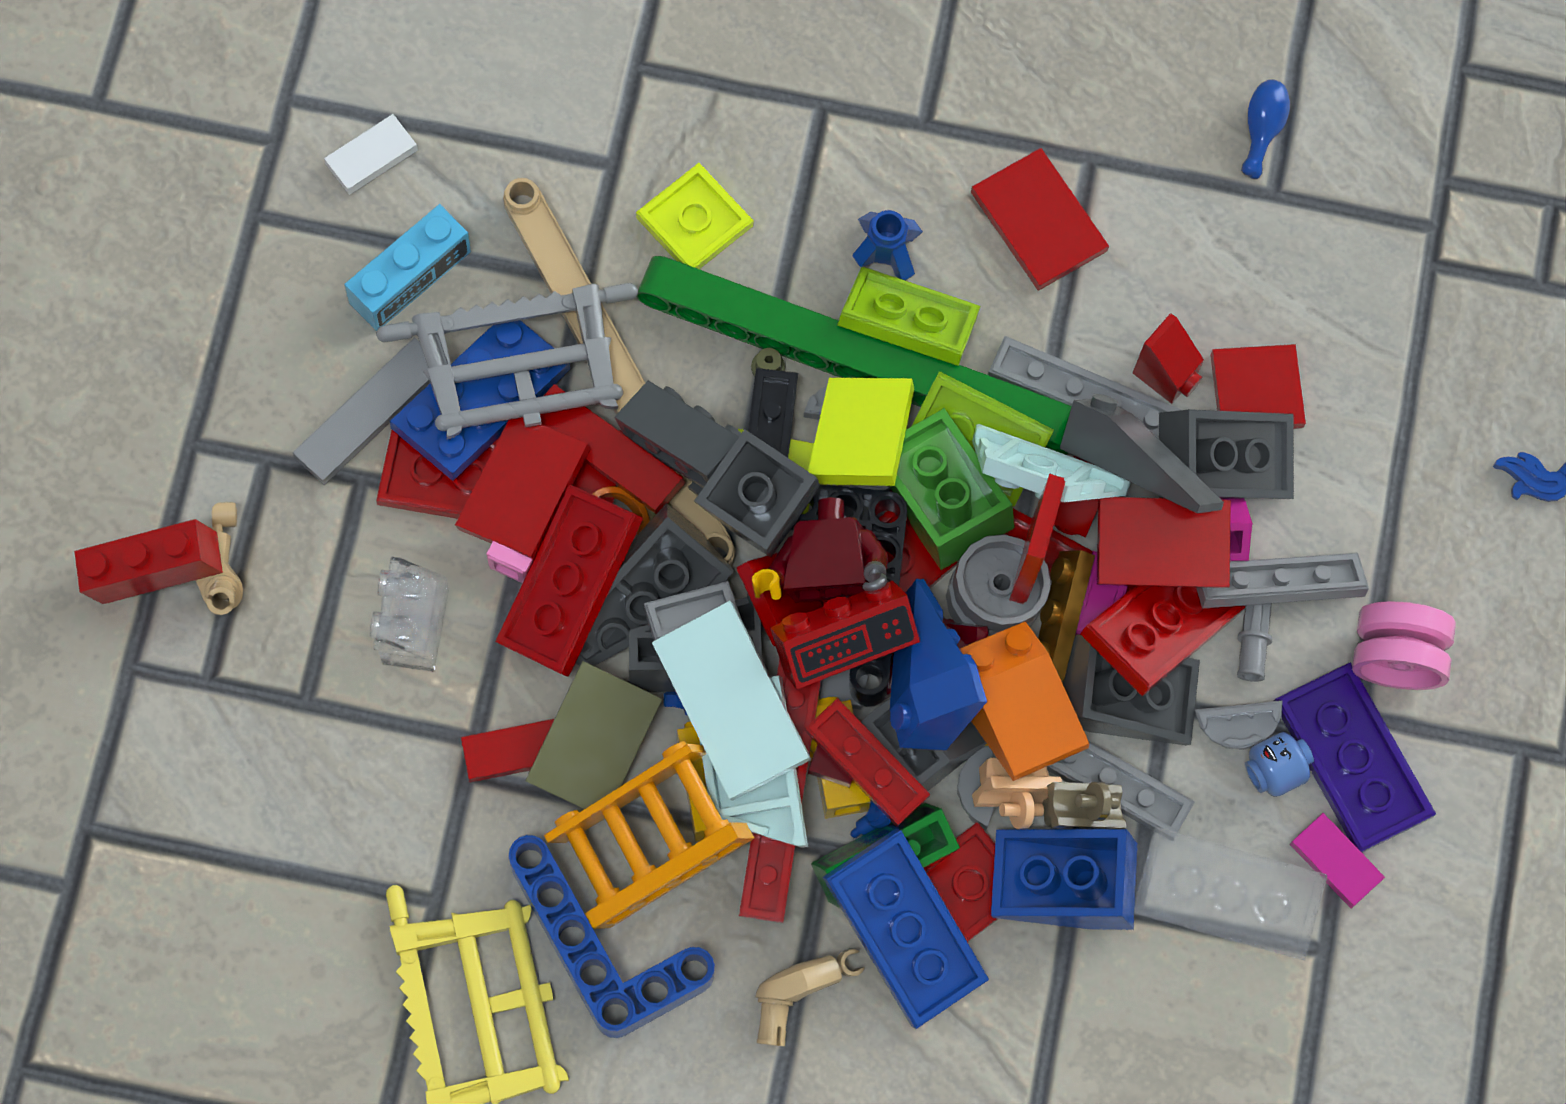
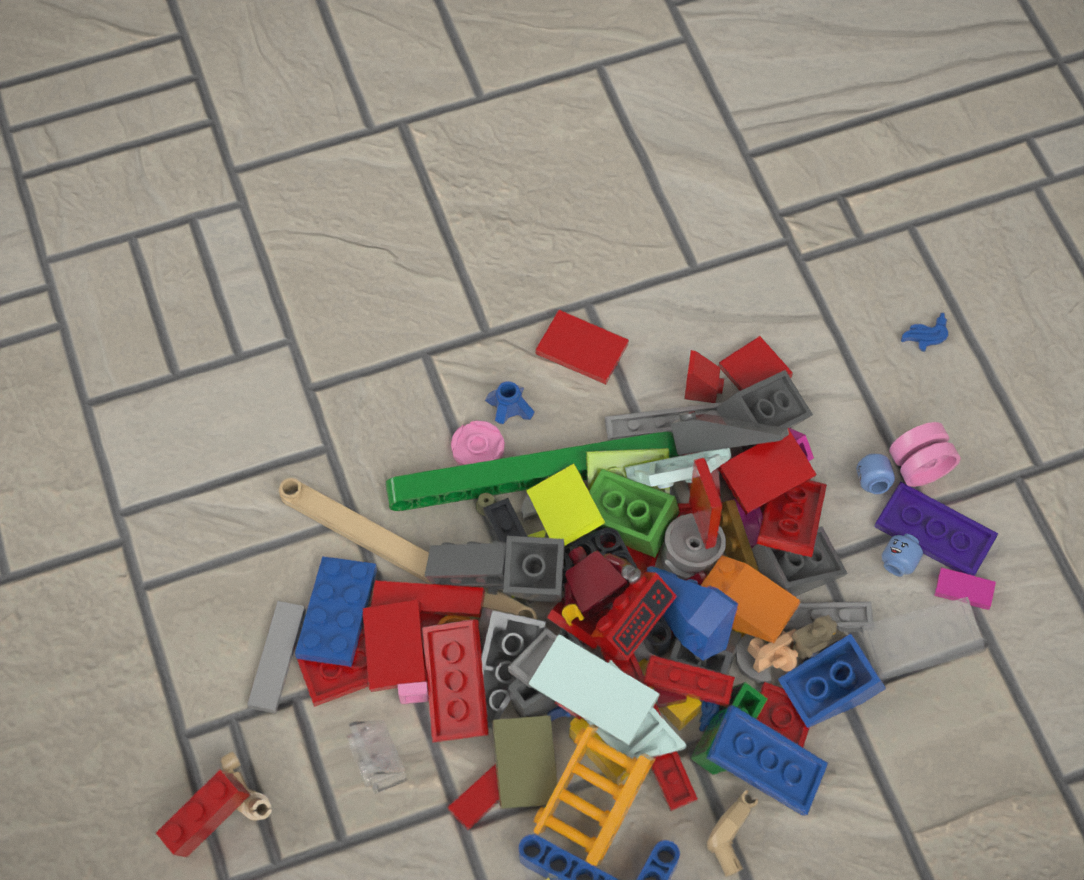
camera: 25 degrees left, 10 degrees down
(371, 154) = (187, 516): white tile -> none
(408, 267) = (250, 564): medium azure brick -> none
(595, 349) = (311, 610): light grey piece -> none
(694, 218) = (394, 449): neon yellow tile -> none
(809, 274) = (477, 443): none -> bright pink tile
(909, 315) = (548, 433): lime tile -> none
(1240, 725) = (866, 547): light grey tile -> none
(1254, 642) = (843, 498): light grey axle -> none
(1266, 119) = (667, 230): blue piece -> none
(1289, 581) = (841, 457): light grey tile -> none
(1321, 631) = (875, 473): none -> medium blue head

